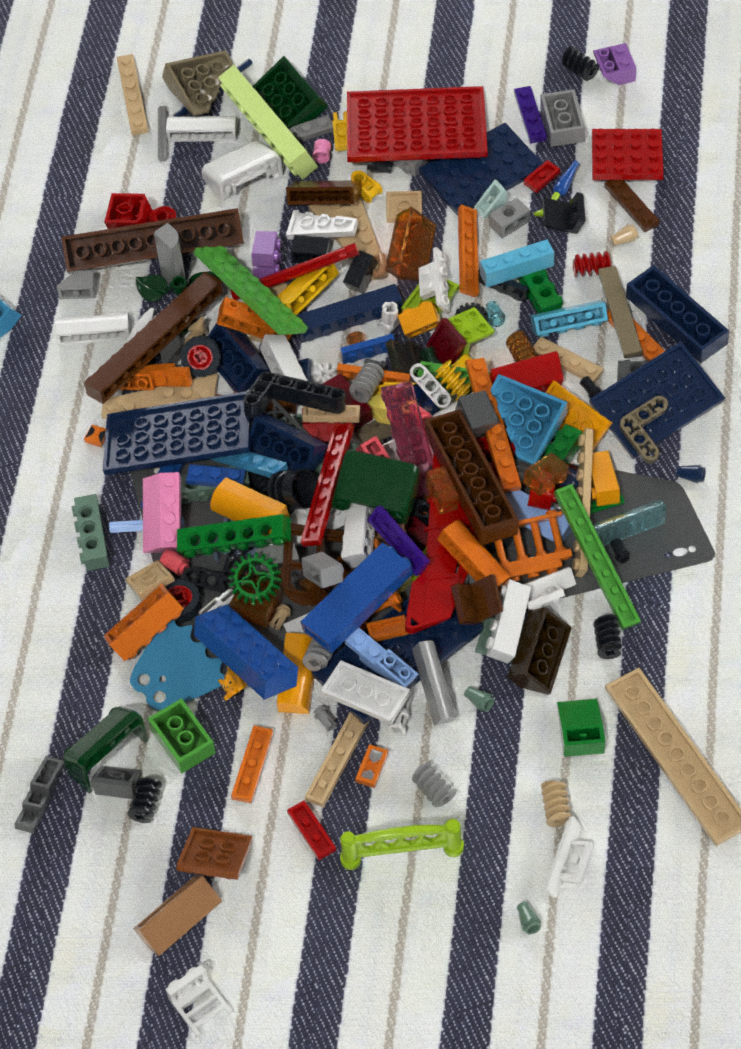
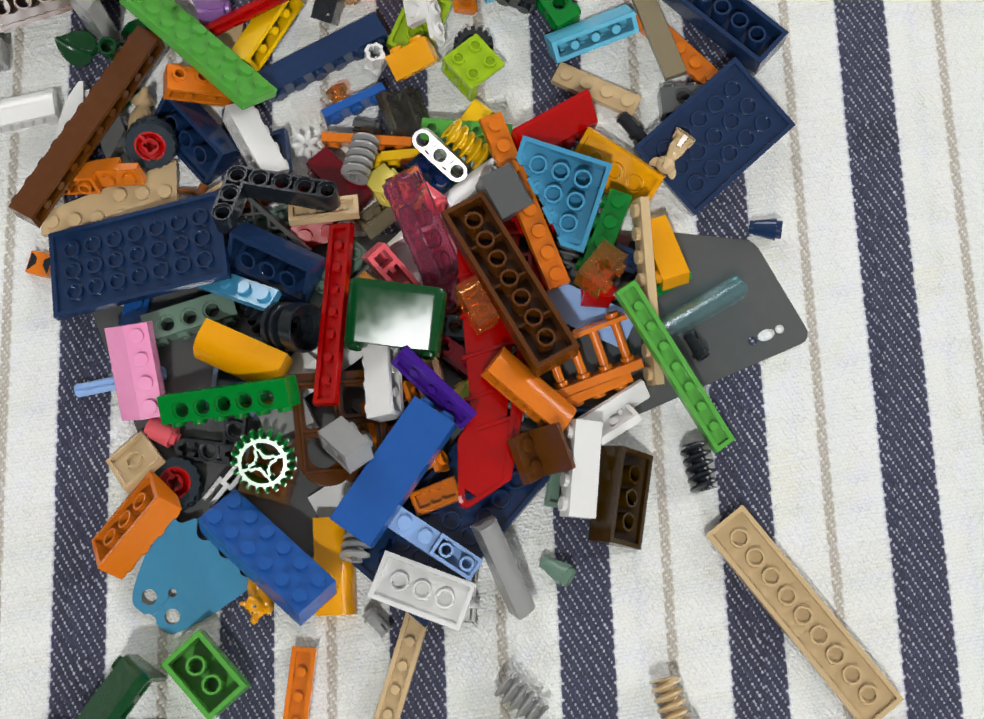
camera: 10 degrees left, 20 degrees up
(96, 557) = (69, 433): sand green brick -> none
(213, 475) = (194, 311): blue plate -> none
(282, 613) = (303, 487): tan pin -> none
(371, 766) = (442, 680): orange piece -> none
(429, 355) = (432, 107): clear green bush -> none
(446, 342) = (449, 88): dark red plate -> none
(495, 315) = (501, 38): clear light blue cone -> none
(520, 346) = (541, 87): clear orange piece -> none
(581, 727) = (684, 592): green slope -> none
(623, 401) = (676, 149): none -> tan animal
(638, 423) = (696, 173): dark tan beam -> none

